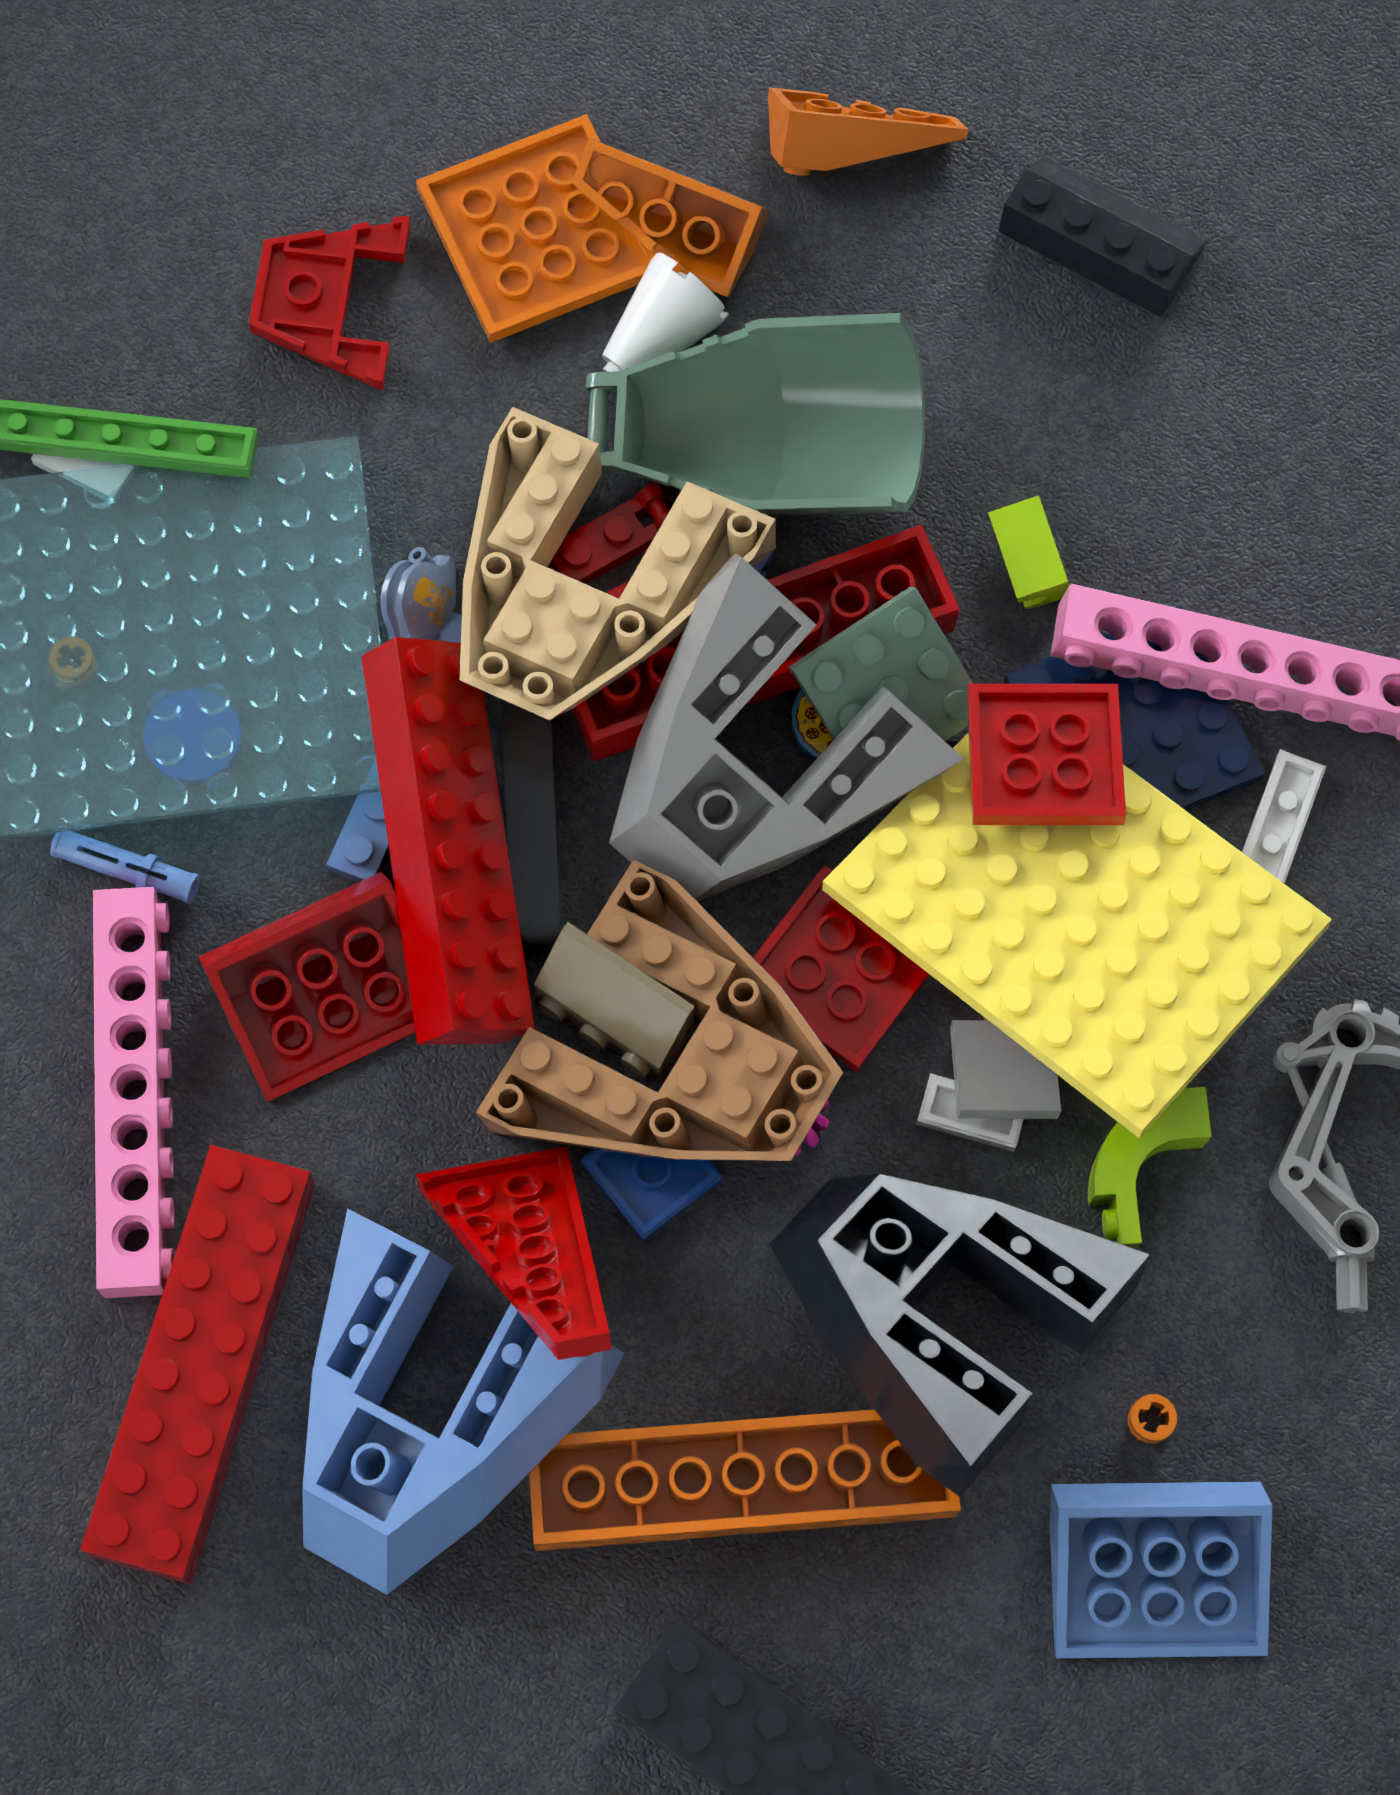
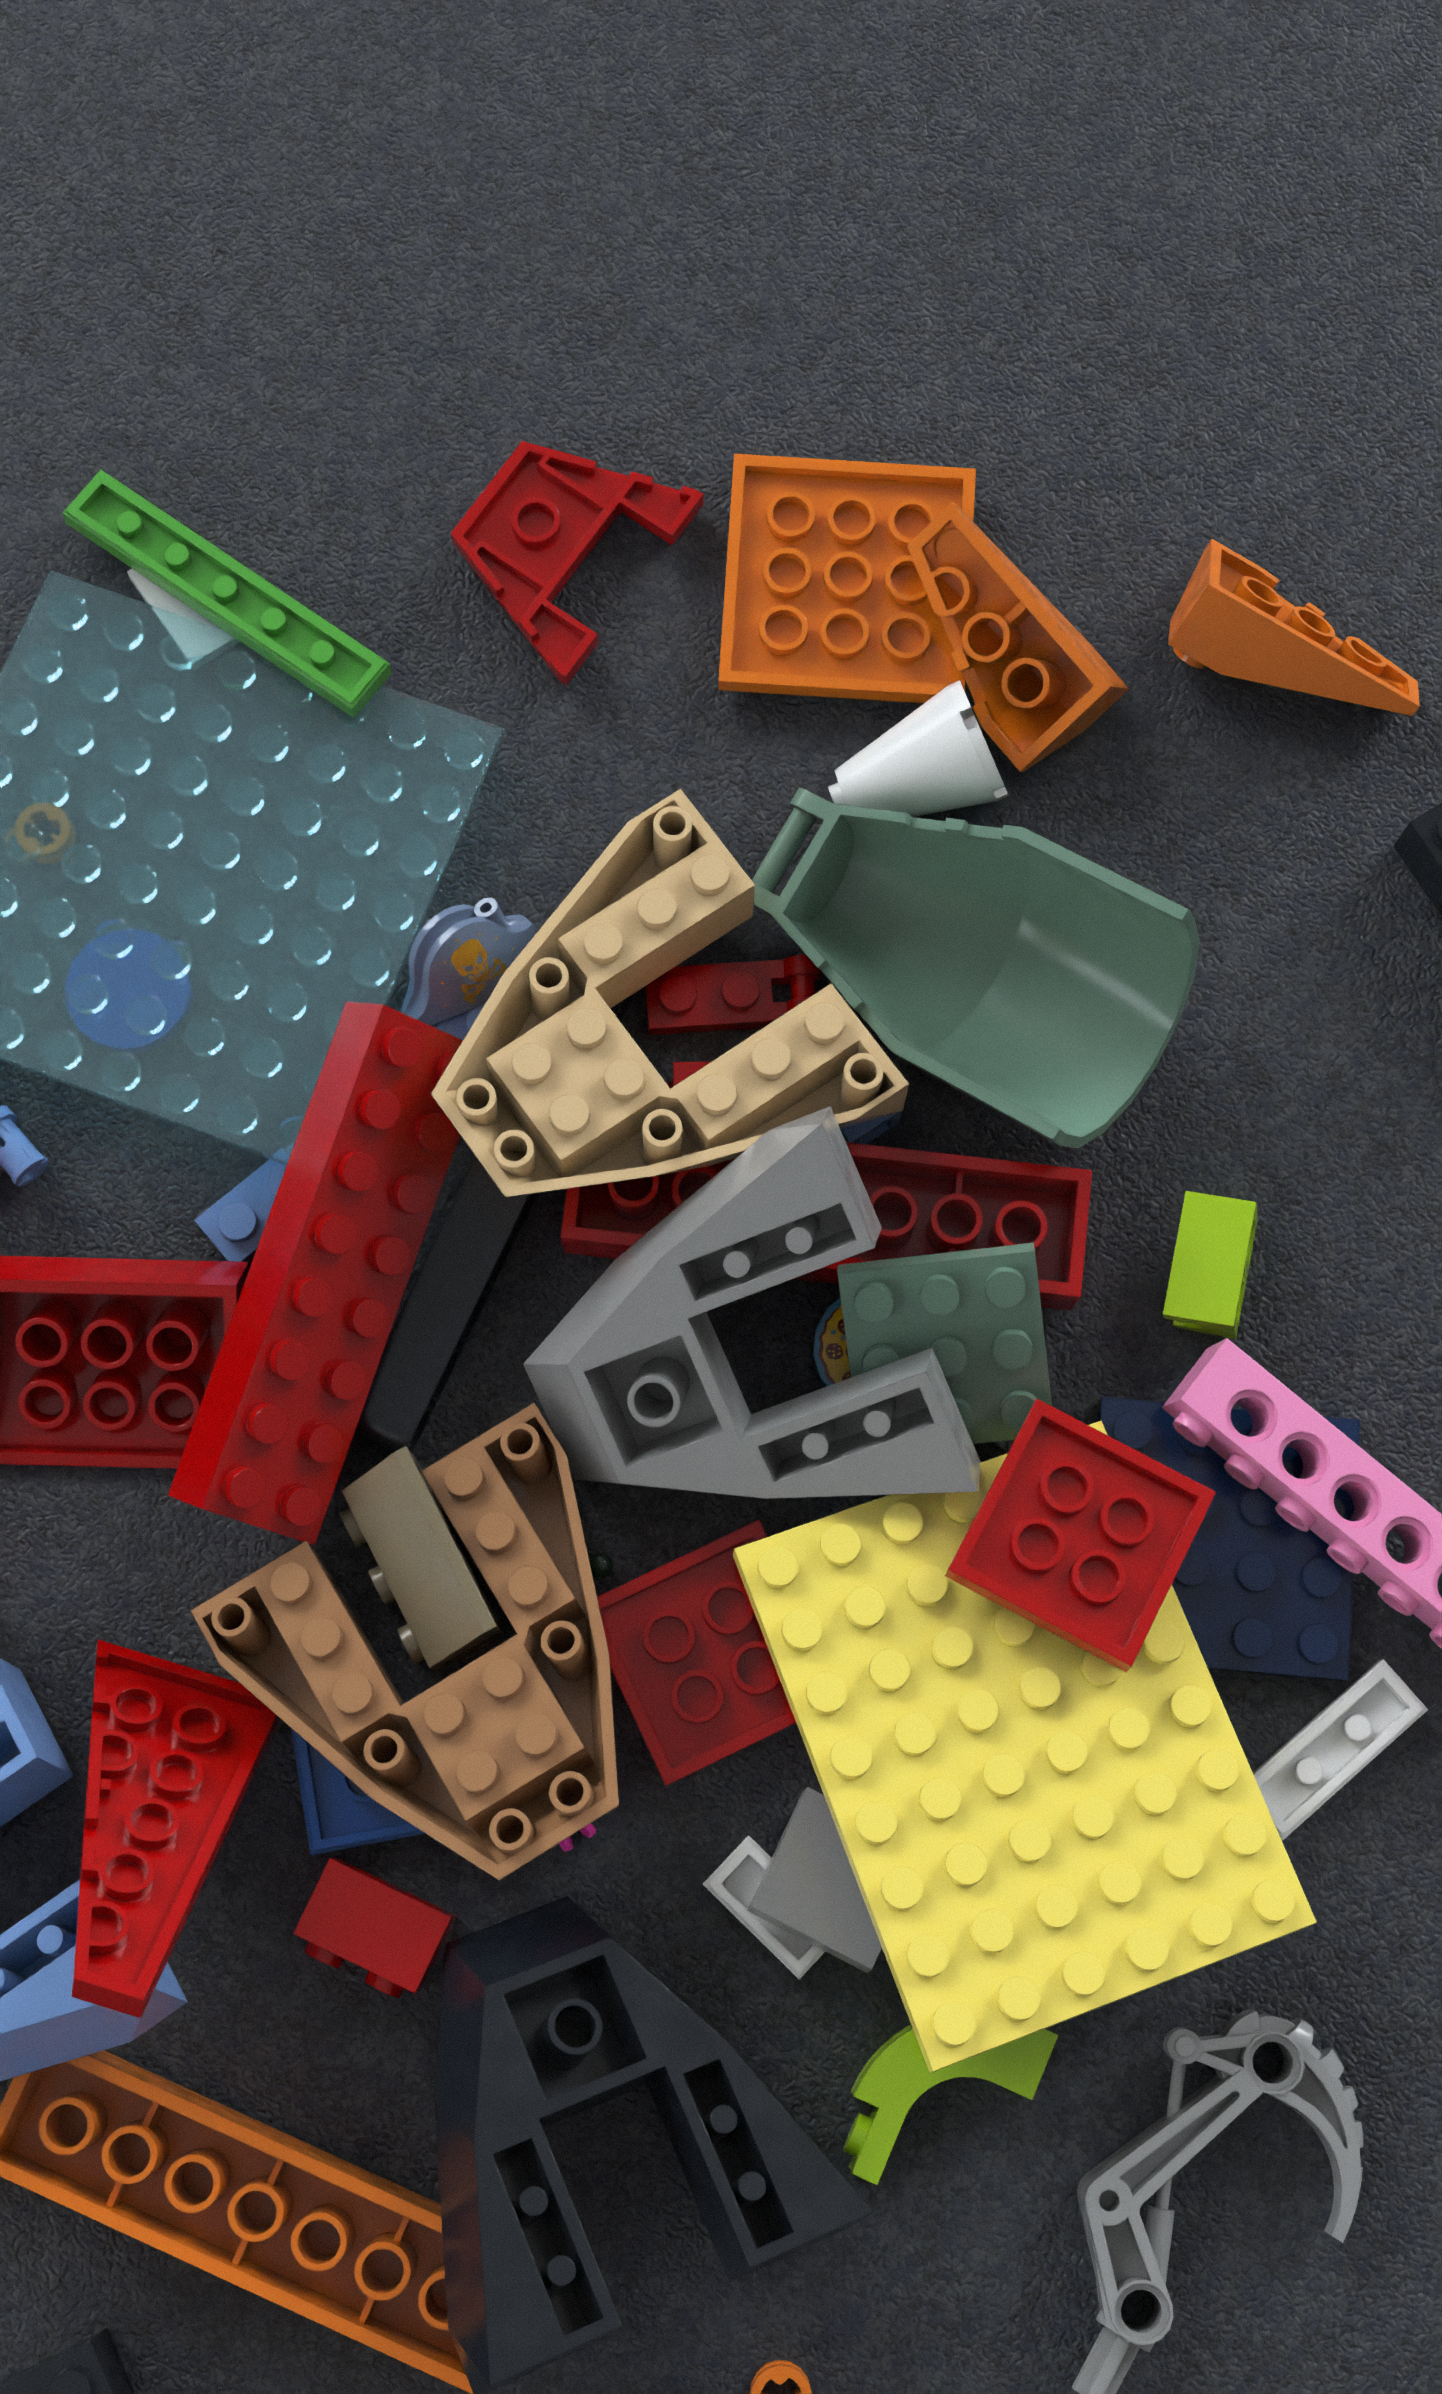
camera: 30 degrees right, 5 degrees up
(714, 1261) = (373, 1927): none -> red brick

